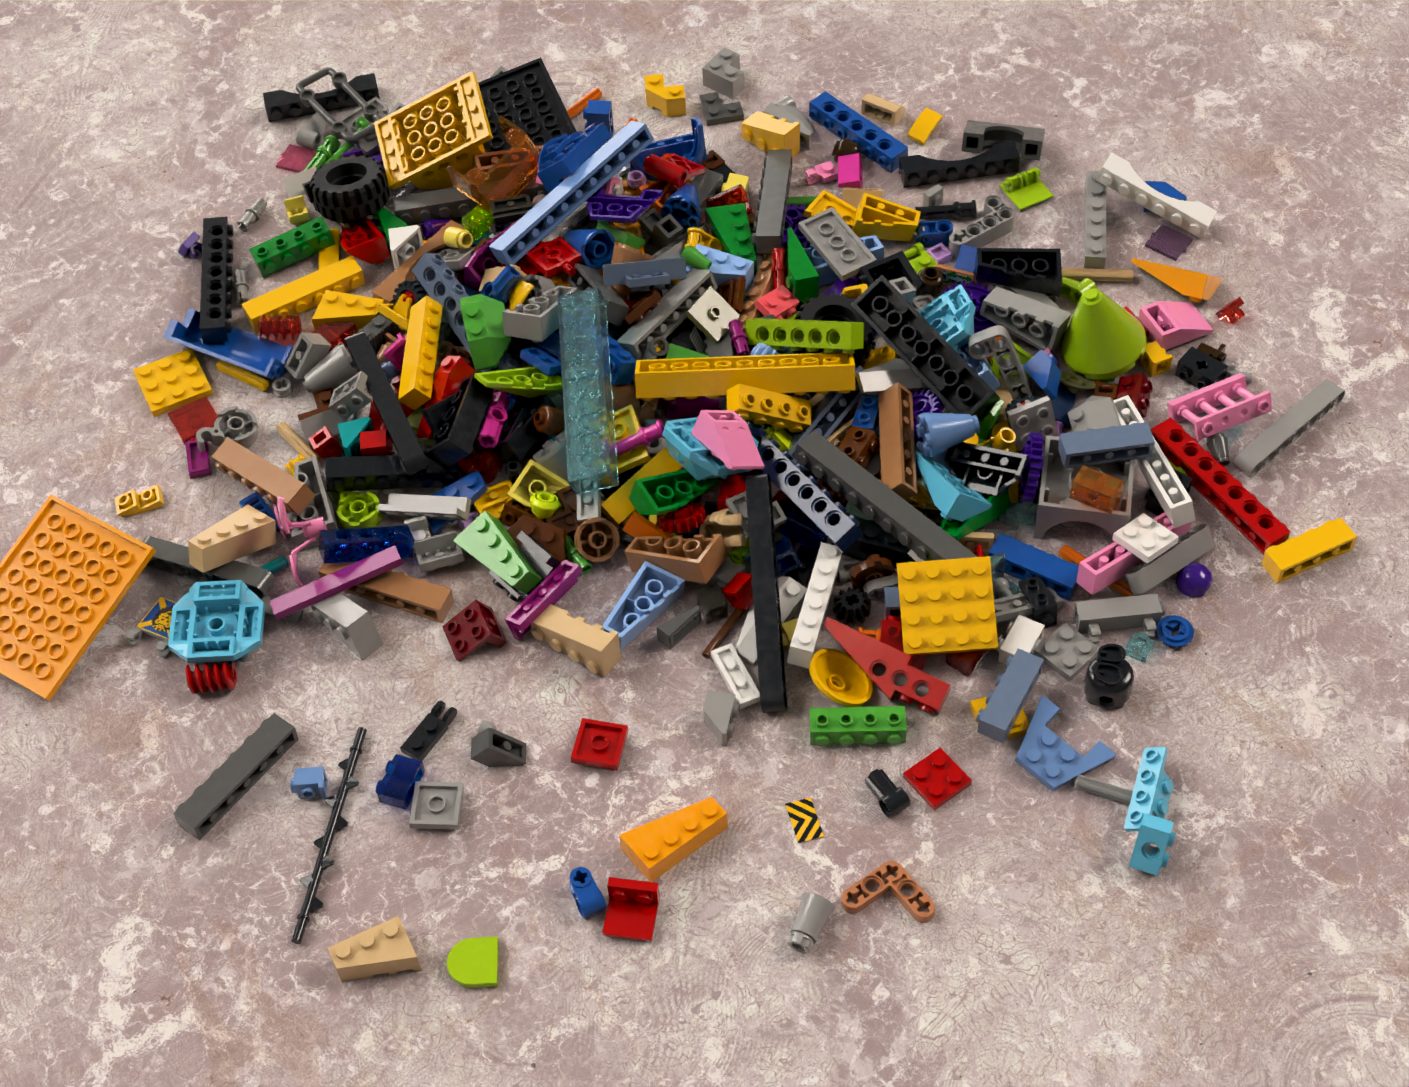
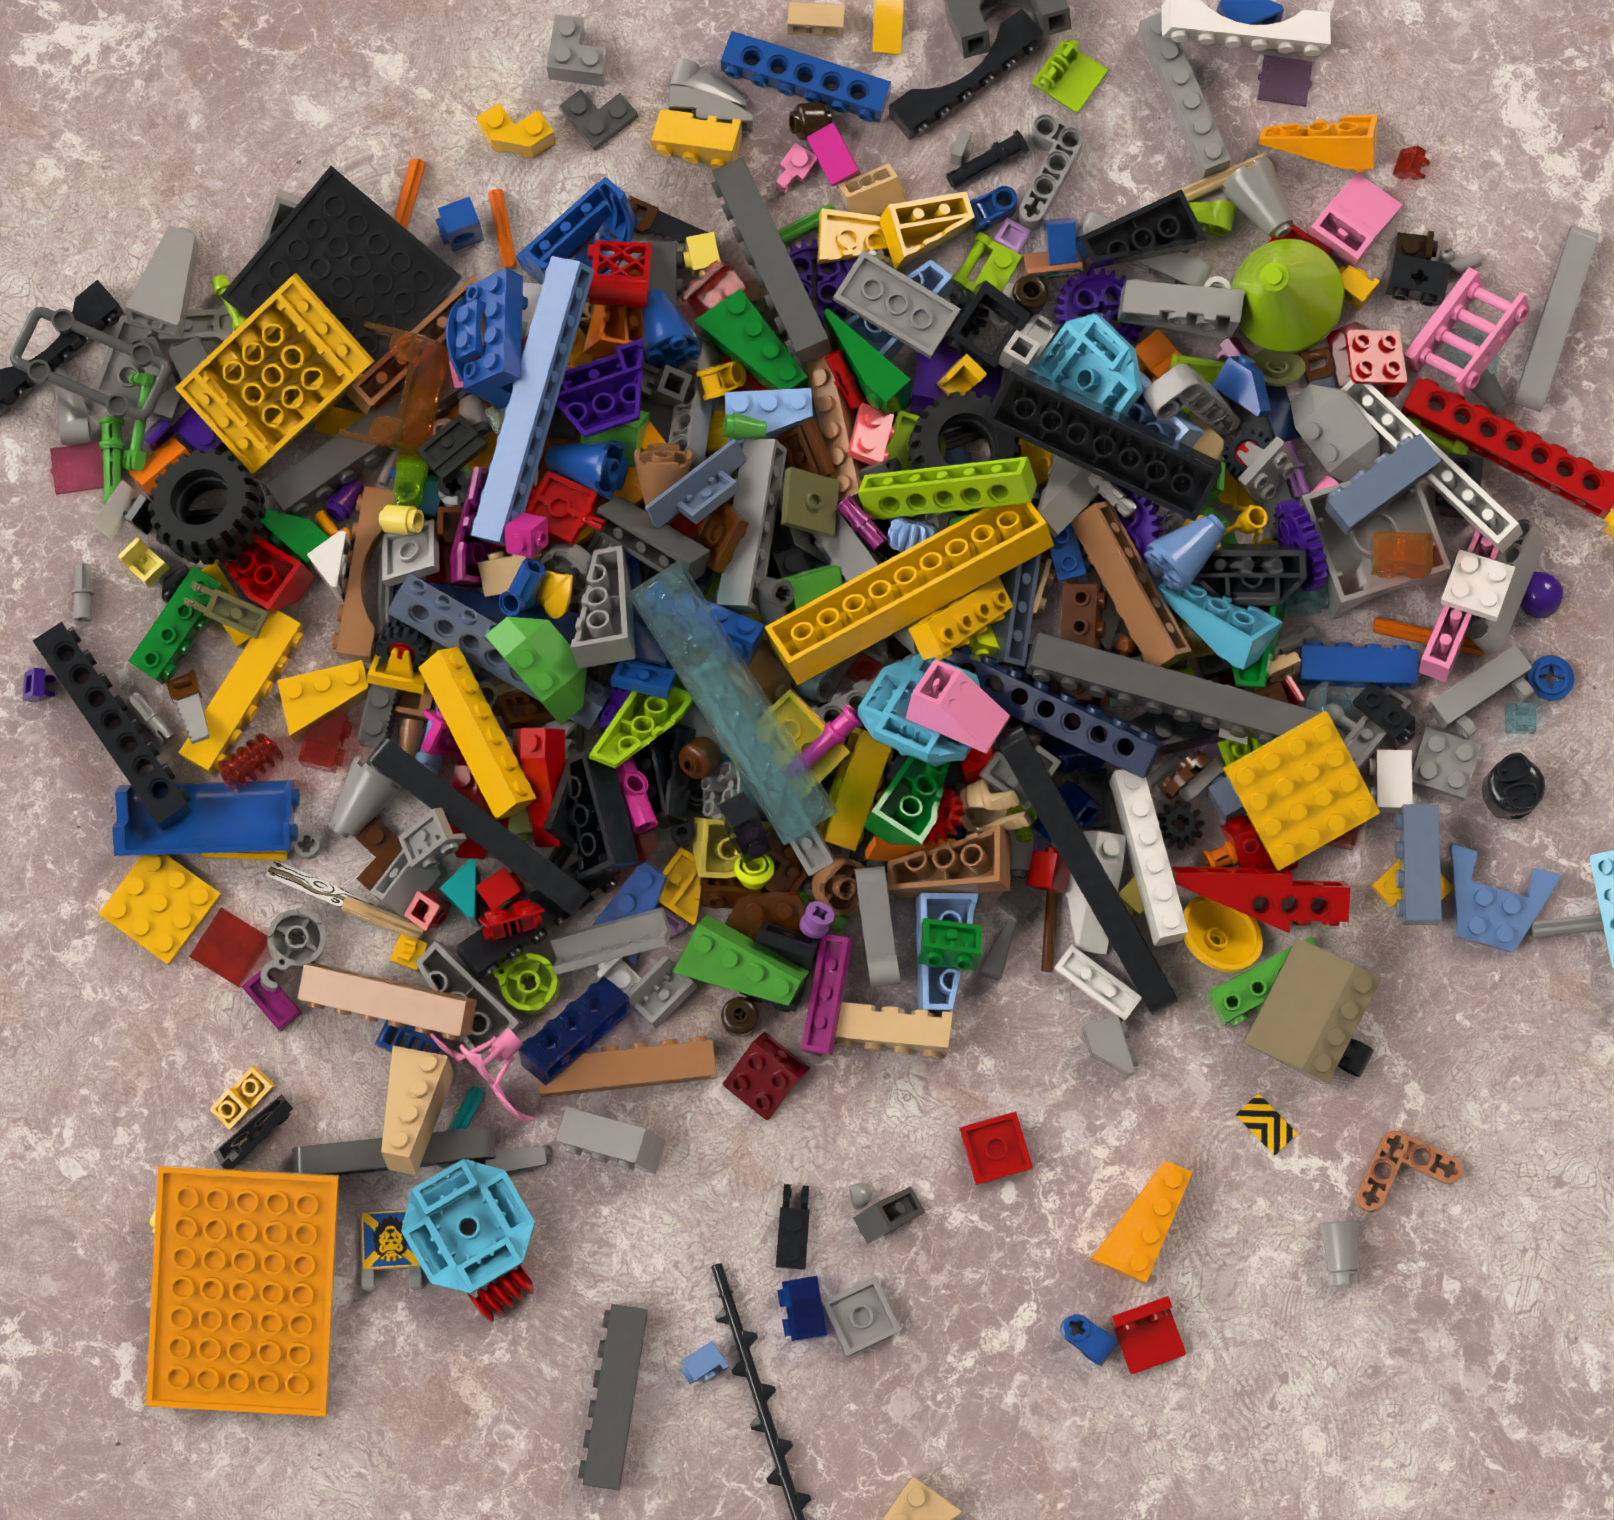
camera: 30 degrees left, 25 degrees up
(137, 516) = (252, 1133): none -> black wing
(267, 284) = (189, 705): none -> light grey piece
(267, 407) = (312, 885): none -> sticker
(306, 354) = (320, 793): light grey brick -> none
(323, 242) = (229, 610): none -> olive hinge
(335, 582) = (575, 1101): tile -> none
(376, 449) = (524, 910): none -> red hinge
(409, 87) = (166, 284): none -> light grey slope
(475, 962) = (1014, 1475): lime tile -> none
(479, 587) = (744, 1026): none -> dark brown head
(521, 256) = (526, 535): none -> dark pink brick
(550, 467) = (744, 827): none -> black brick
(565, 546) = (816, 920): none -> medium lavender wheel
(604, 571) = (877, 926): none -> light grey beam
(643, 595) = (950, 944): none -> green bracket
(877, 749) = (1312, 1011): none -> dark tan slope
(915, 387) = (1113, 495): none -> light grey axle
(937, 778) = (1391, 1003): red plate -> none
(1114, 279) = (1260, 197): none -> light grey cone
(1146, 393) = (1377, 359): none -> bracket

